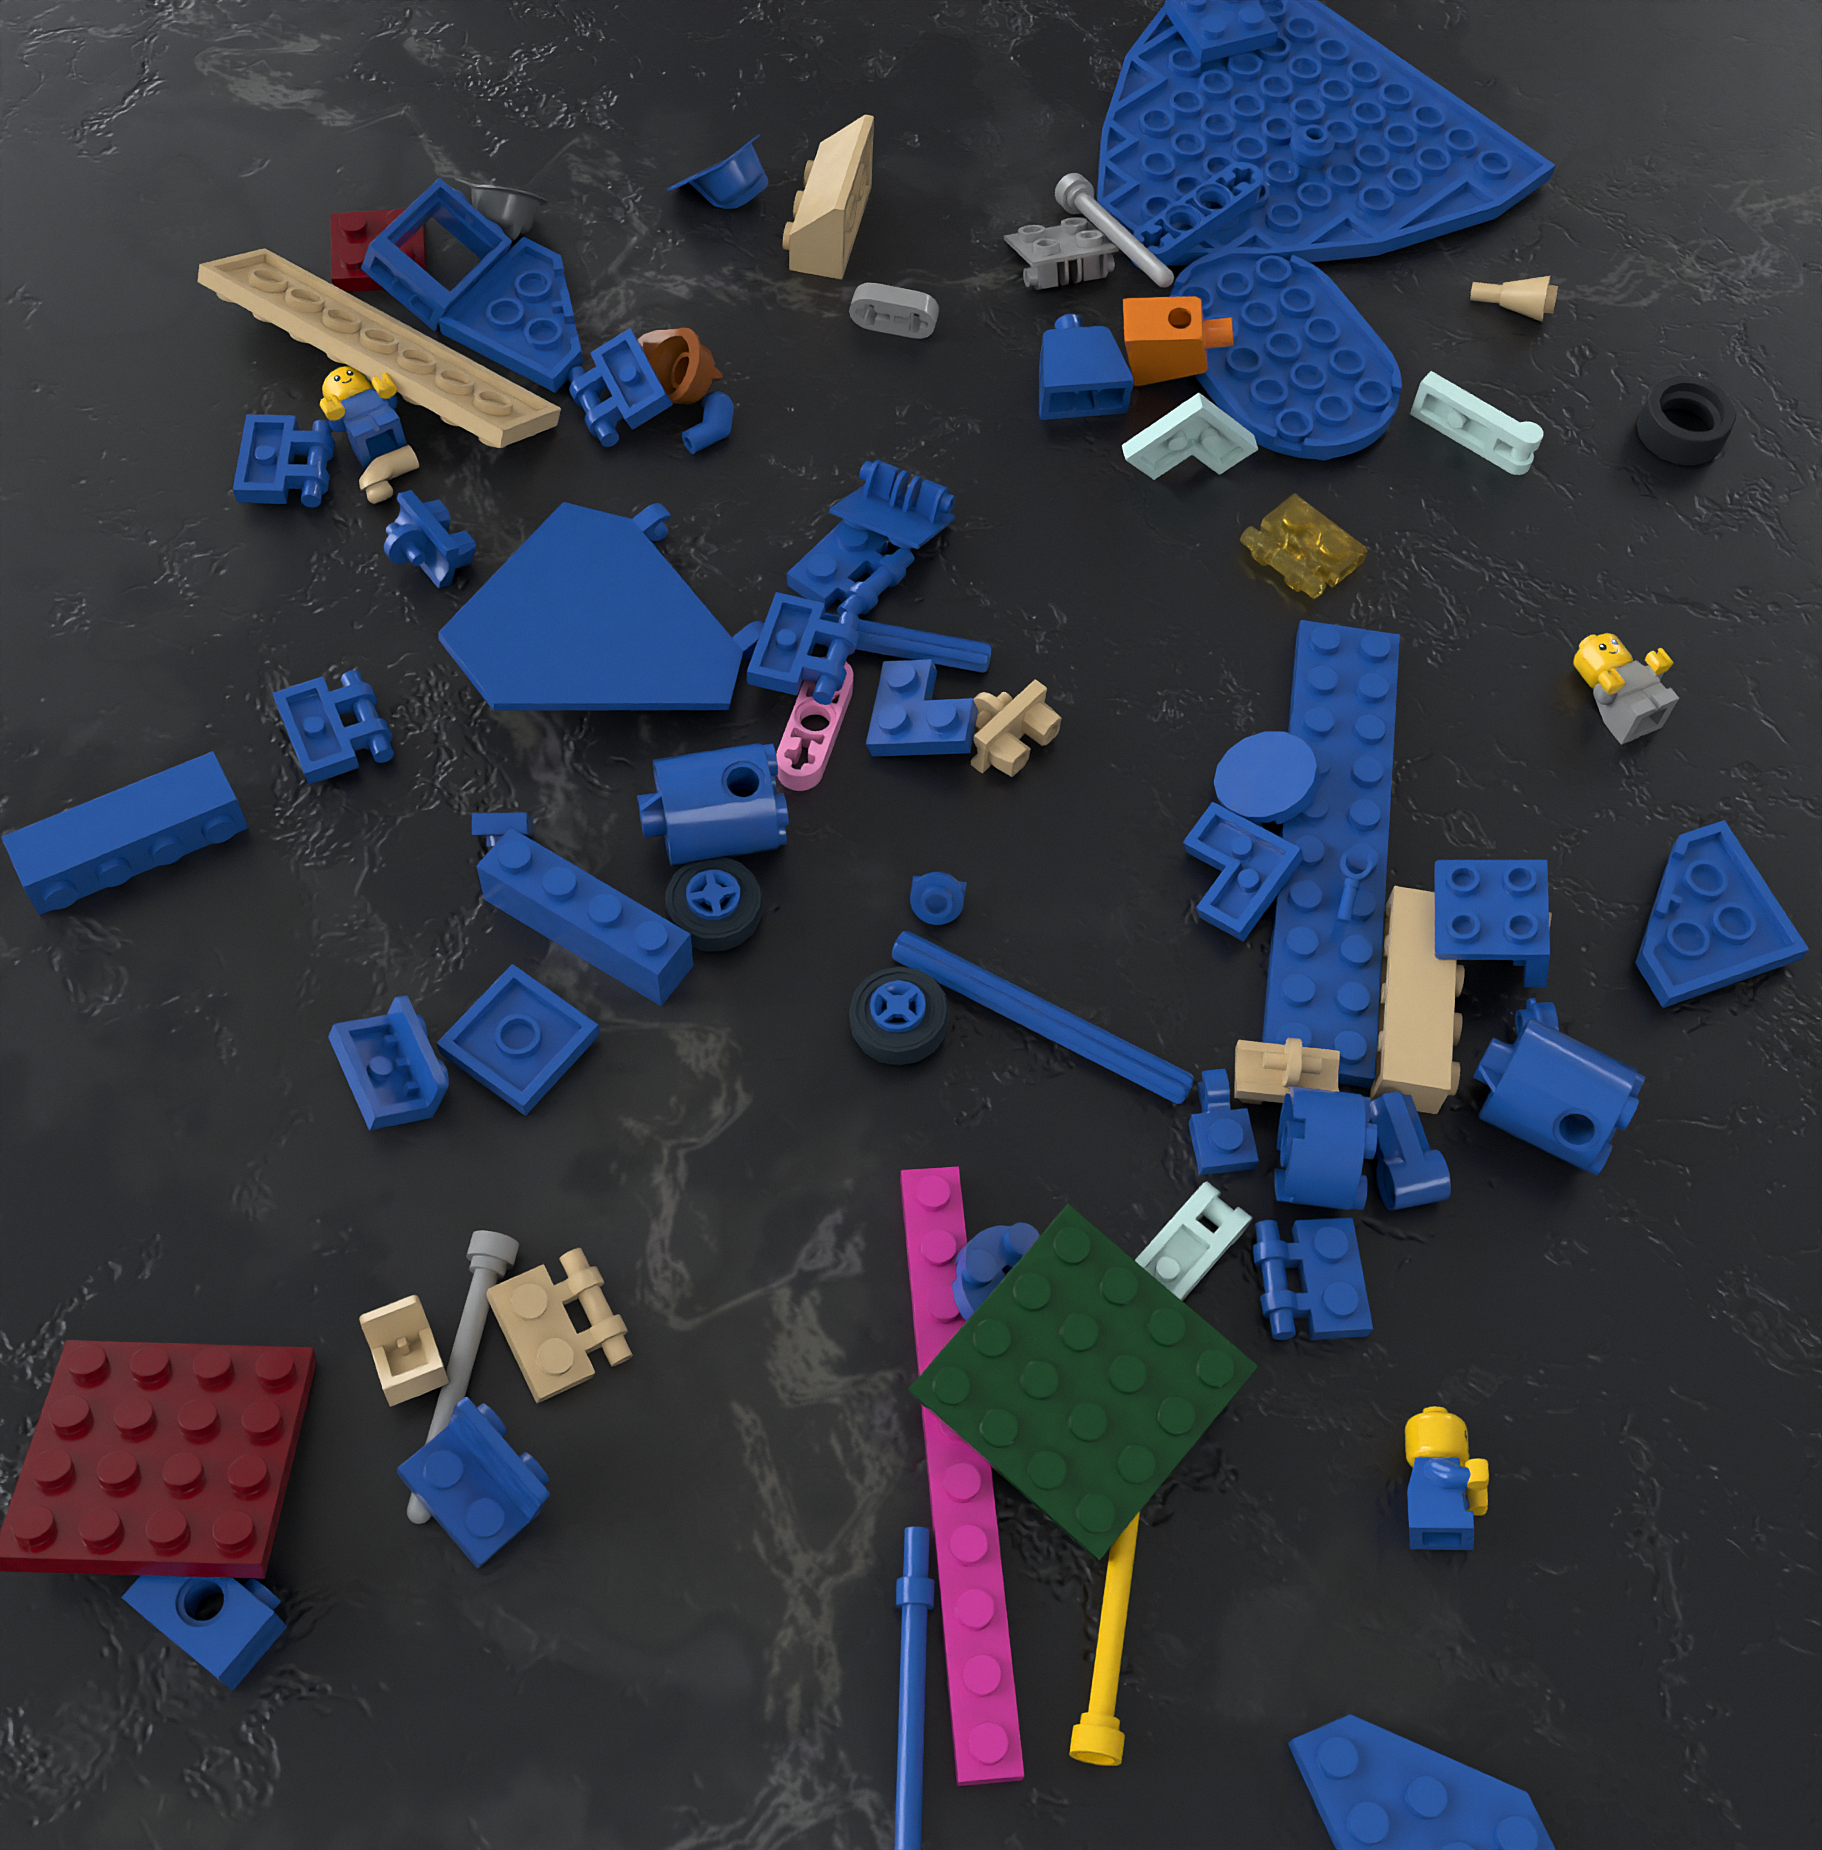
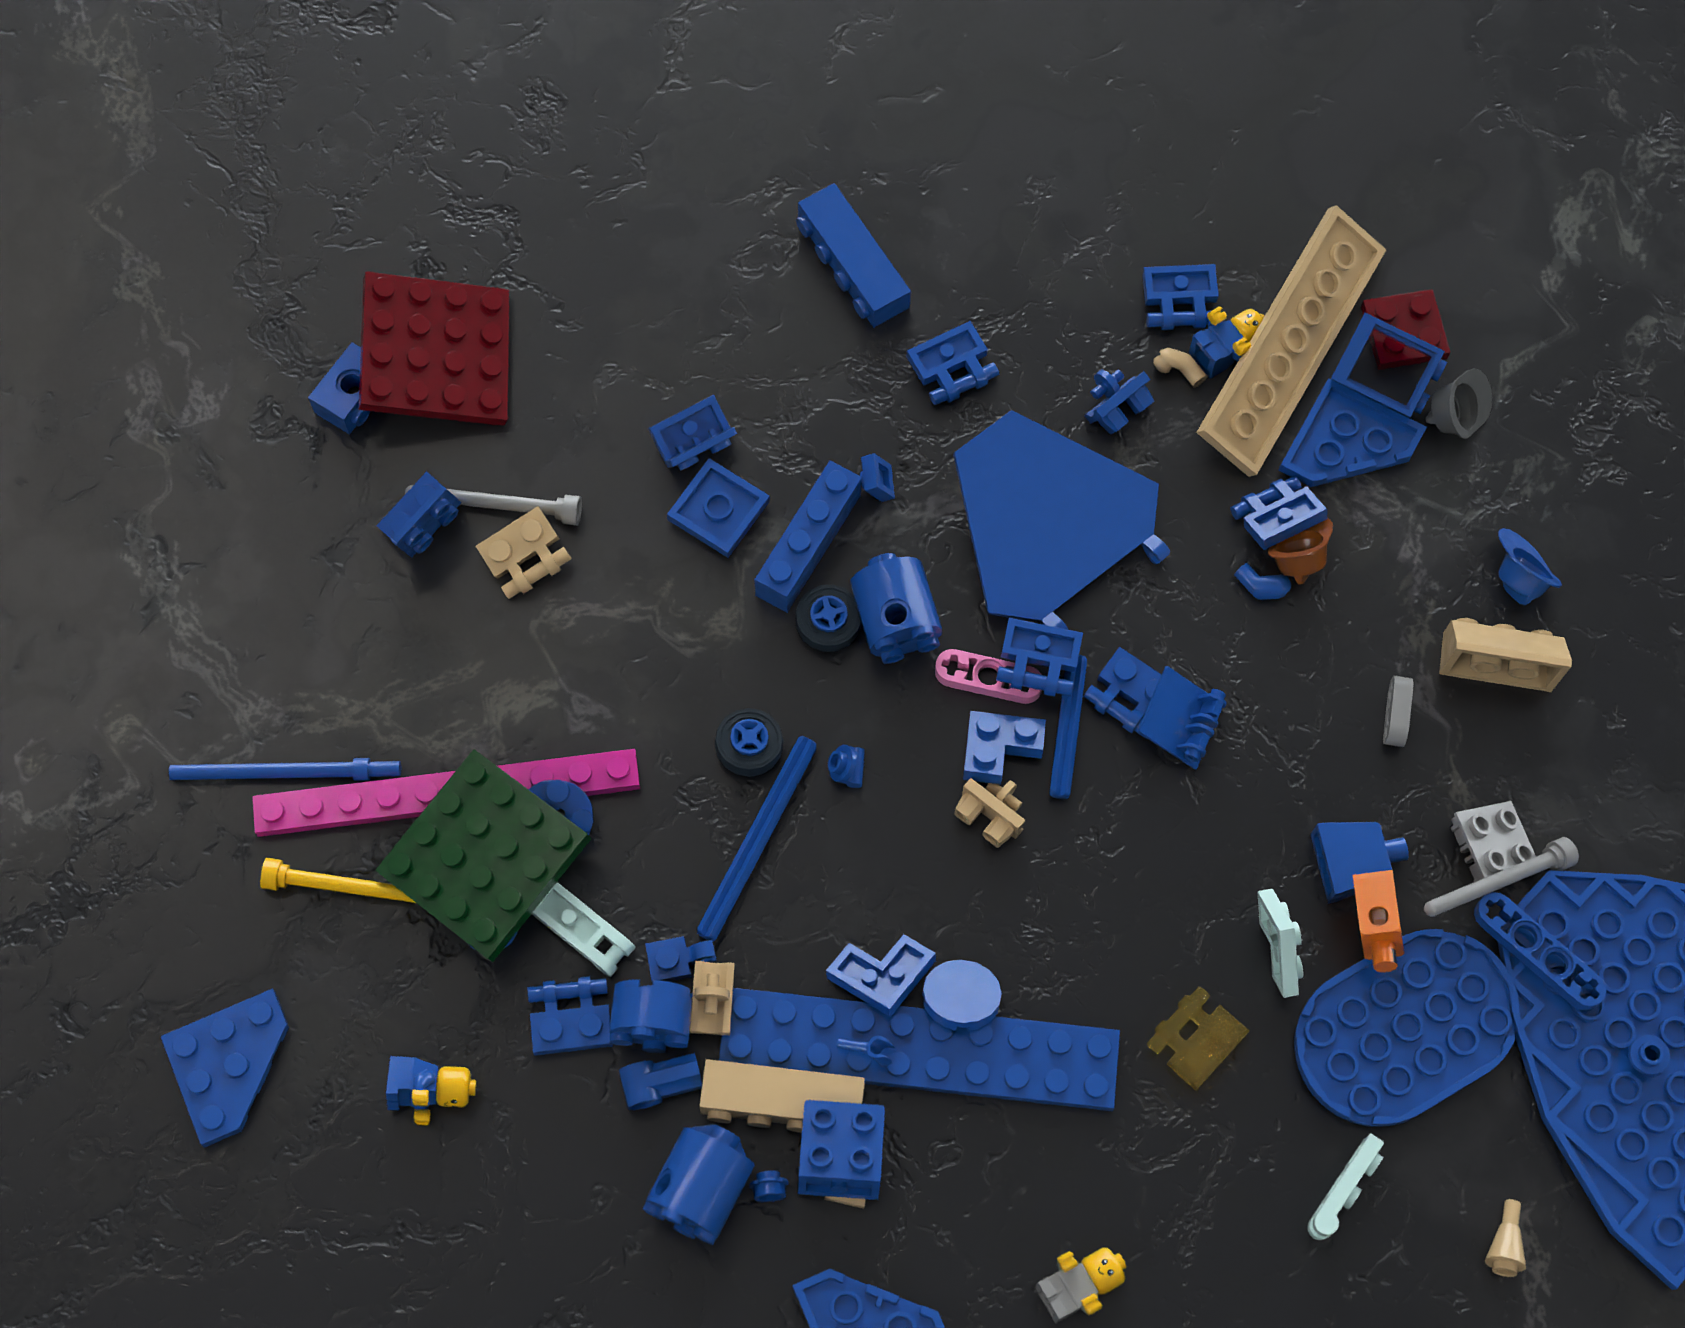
camera: 90 degrees right, 10 degrees up
(404, 1350) = (503, 469): tan bracket -> none

